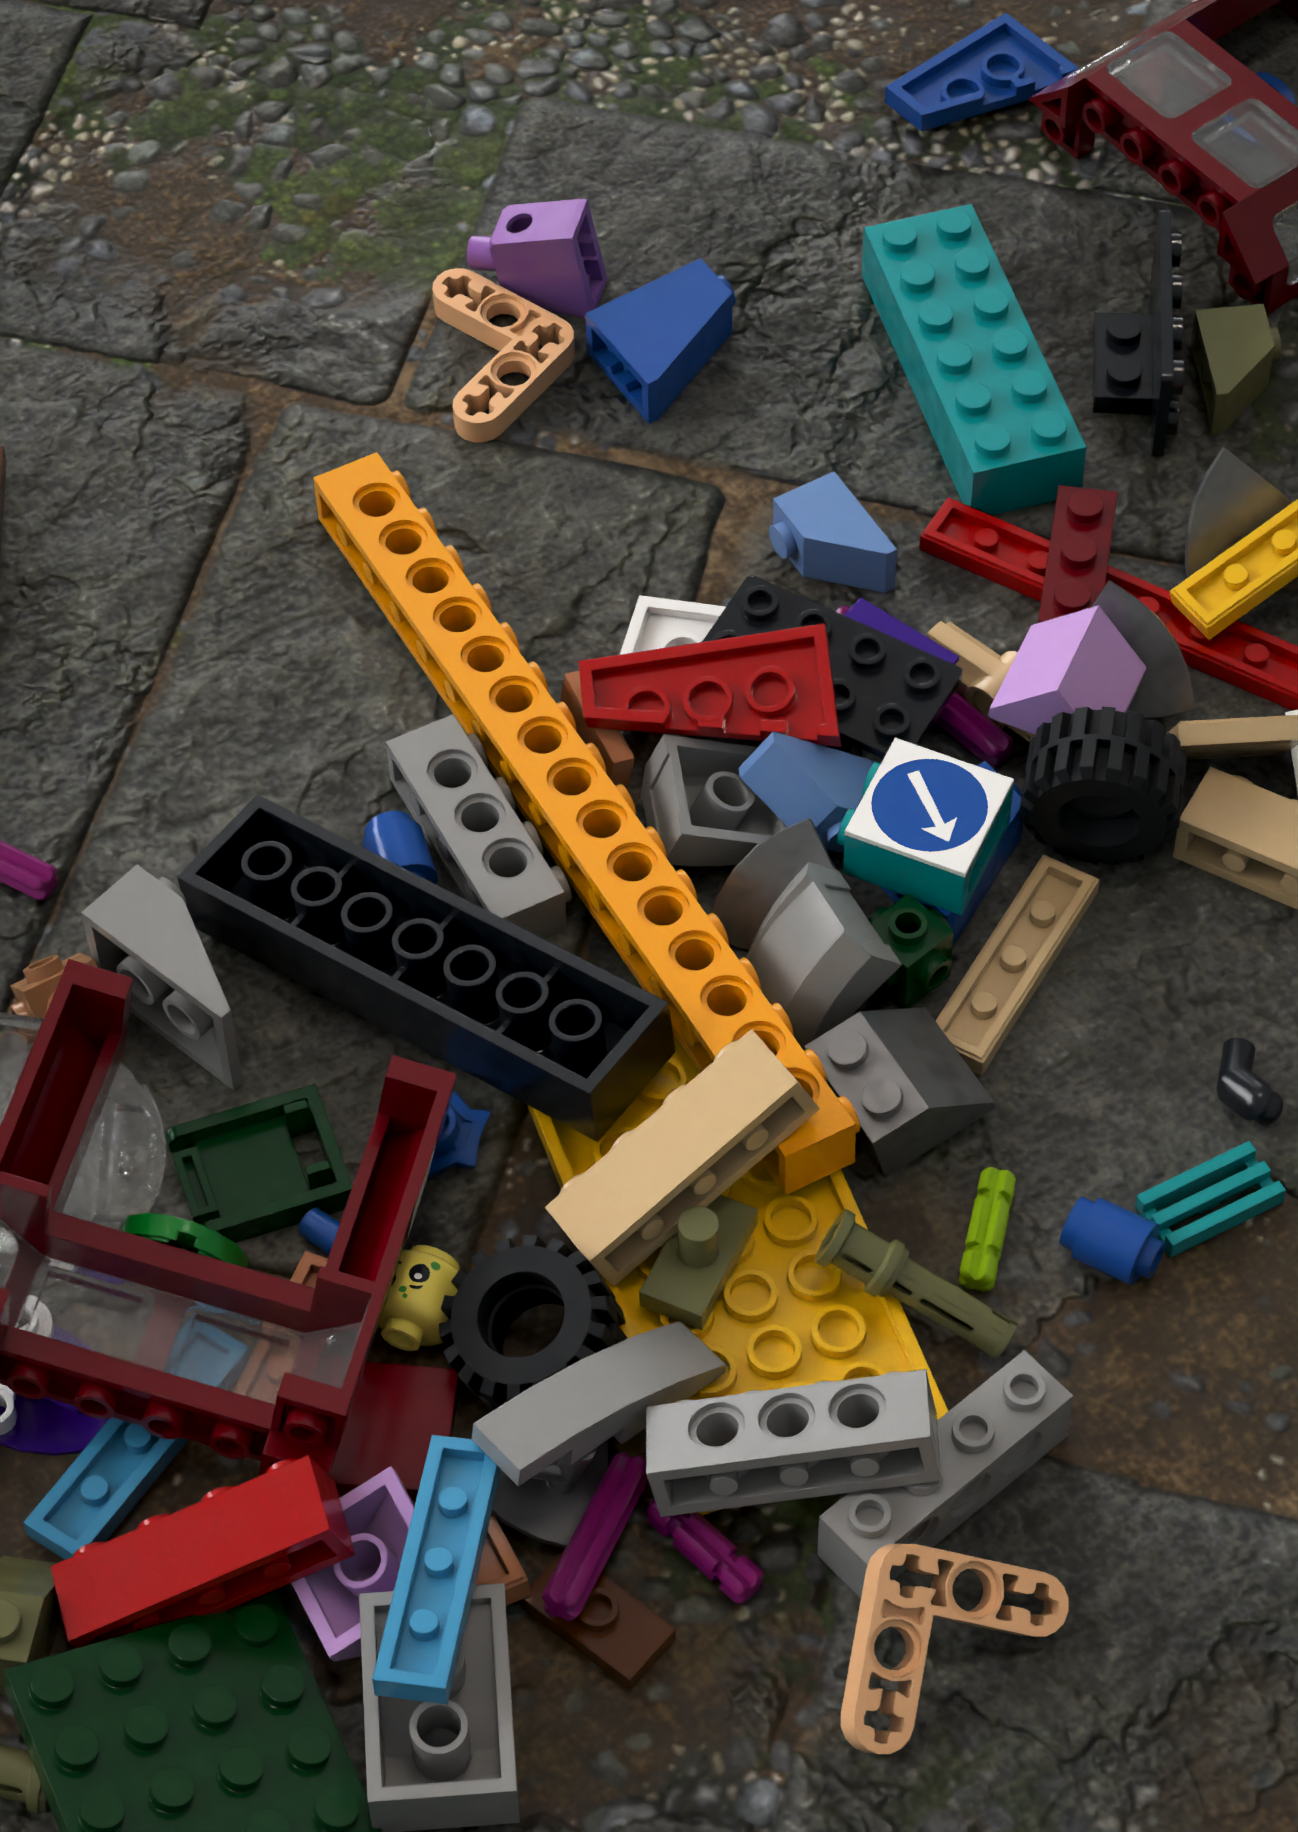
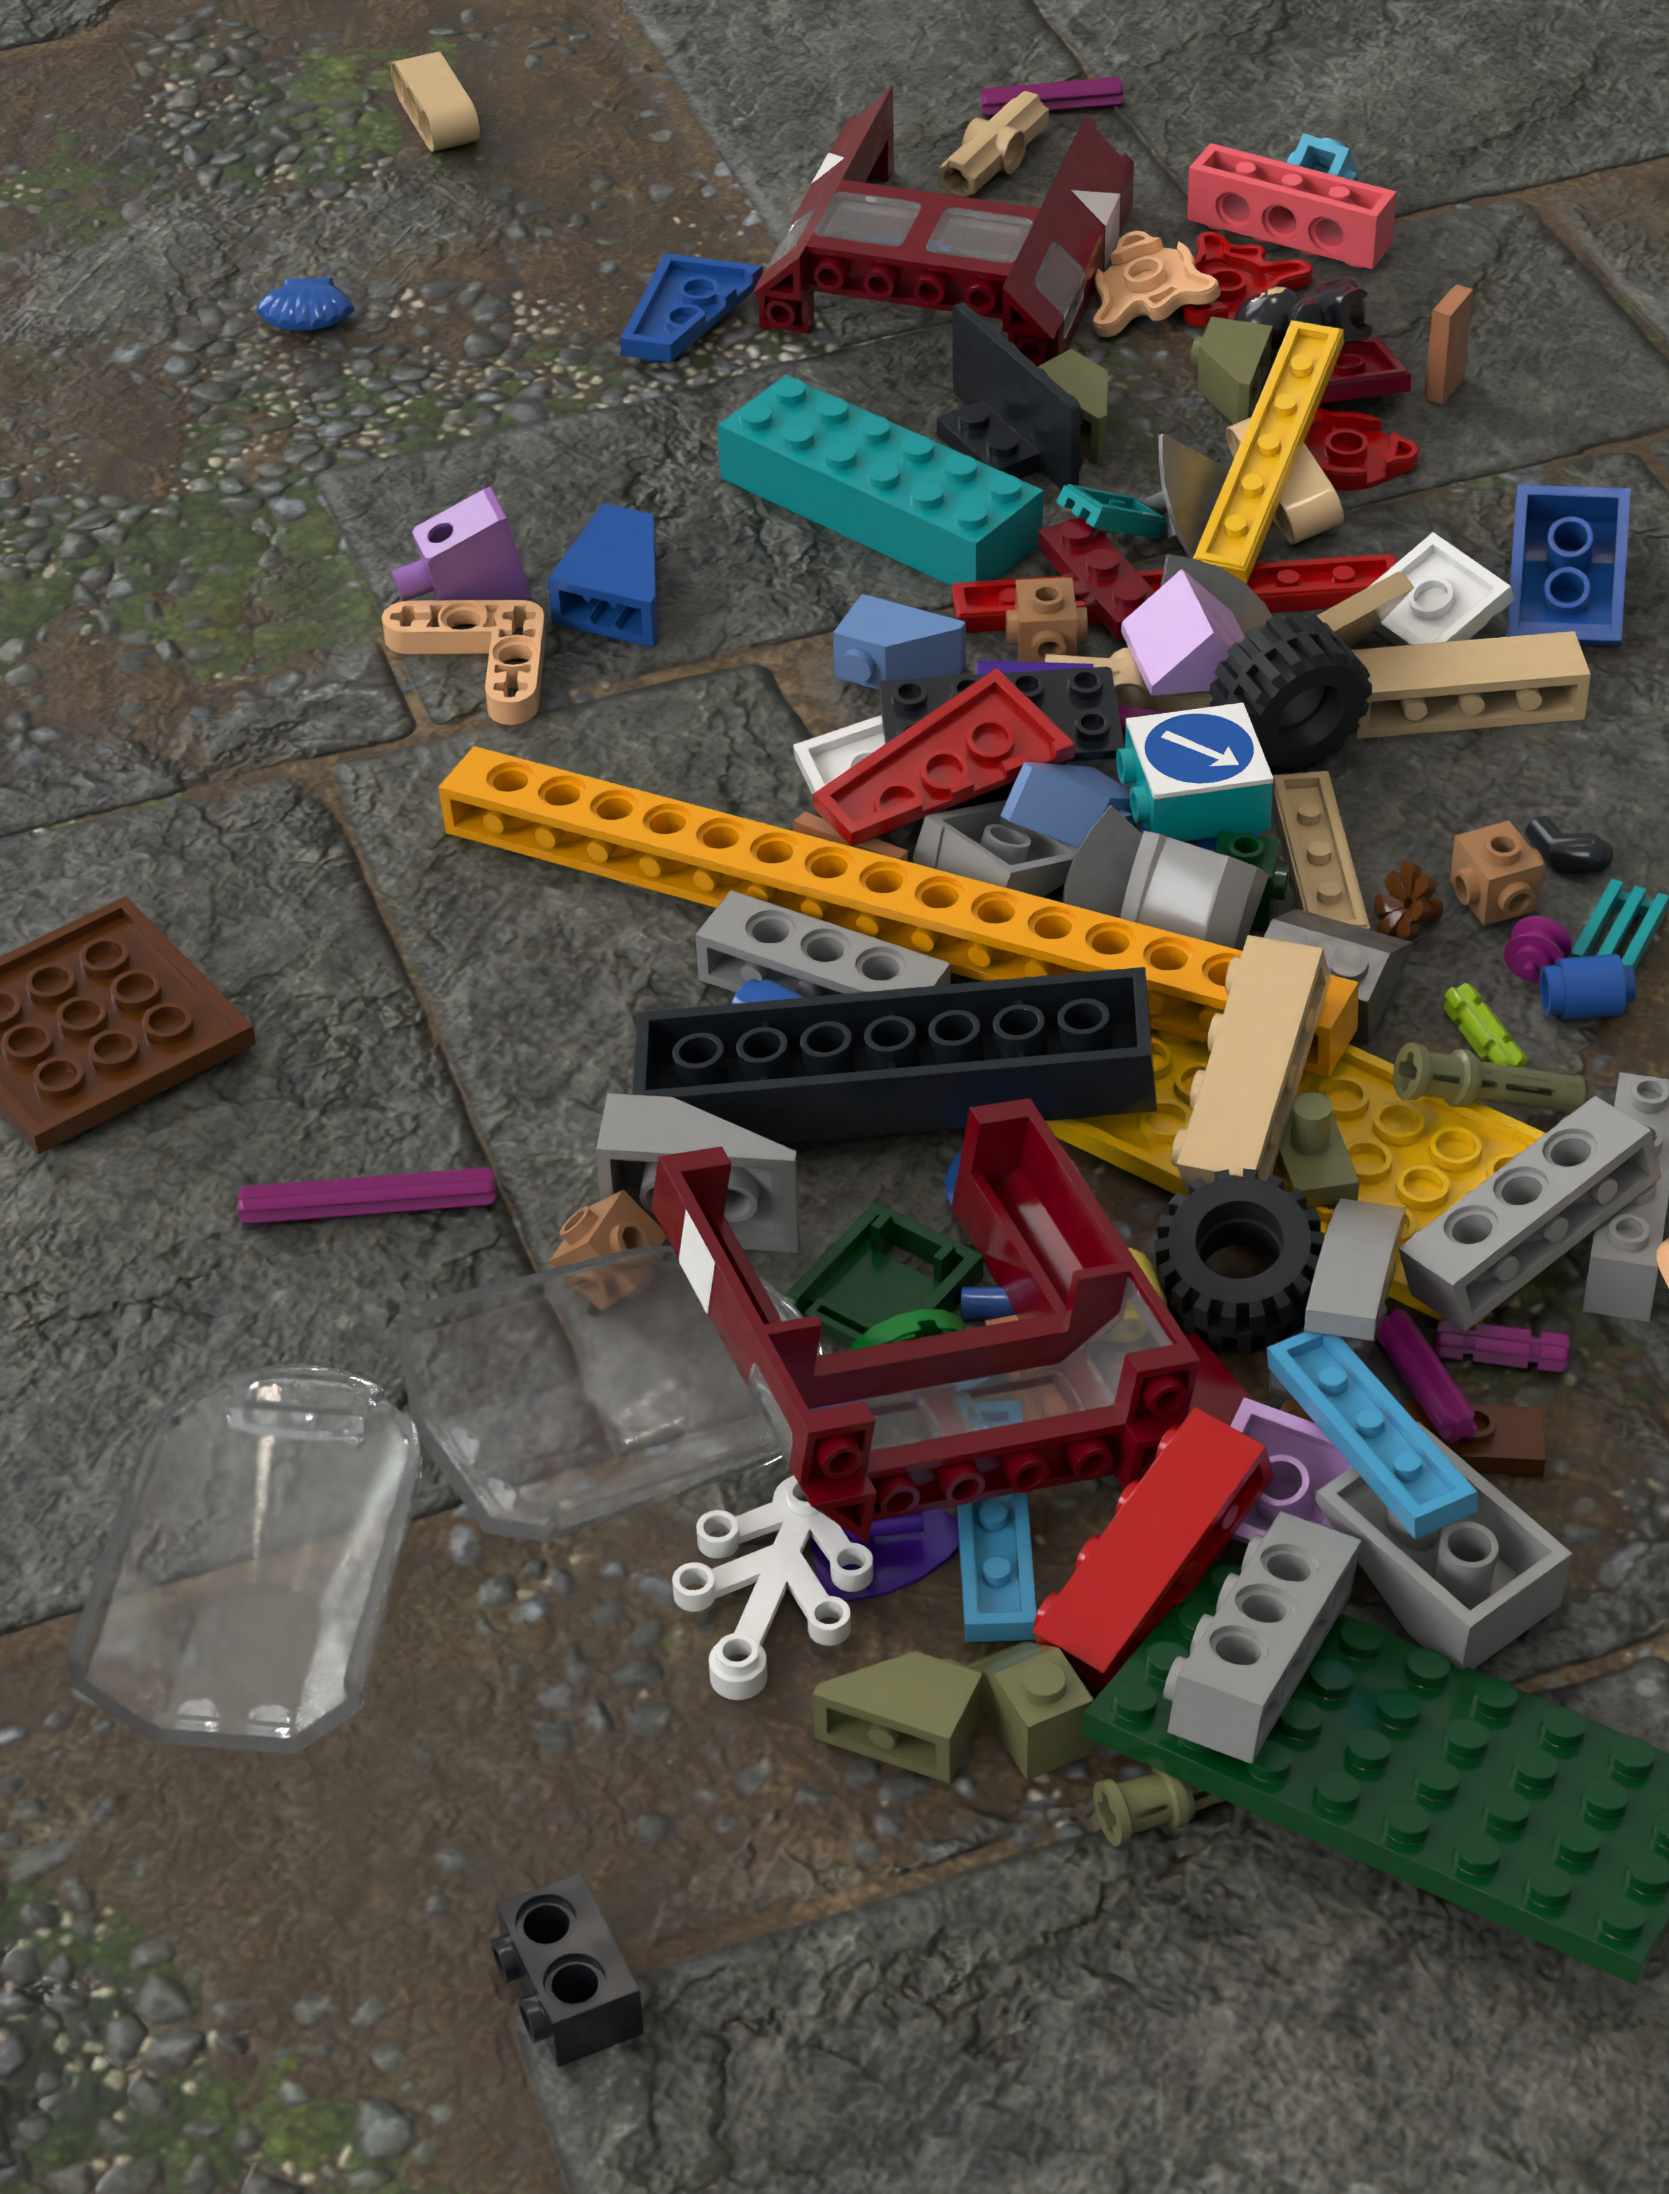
camera: 35 degrees left, 10 degrees down
(106, 1754) = (1262, 1636): none -> light grey brick
(979, 585) = (1045, 619): none -> medium nougat brick
(1037, 1060) = (1407, 903): none -> reddish brown plant
(1108, 1173) = (1534, 944): none -> magenta wheel
(1135, 1076) = (1496, 873): none -> medium nougat brick
(1142, 497) = (1112, 511): none -> teal tile

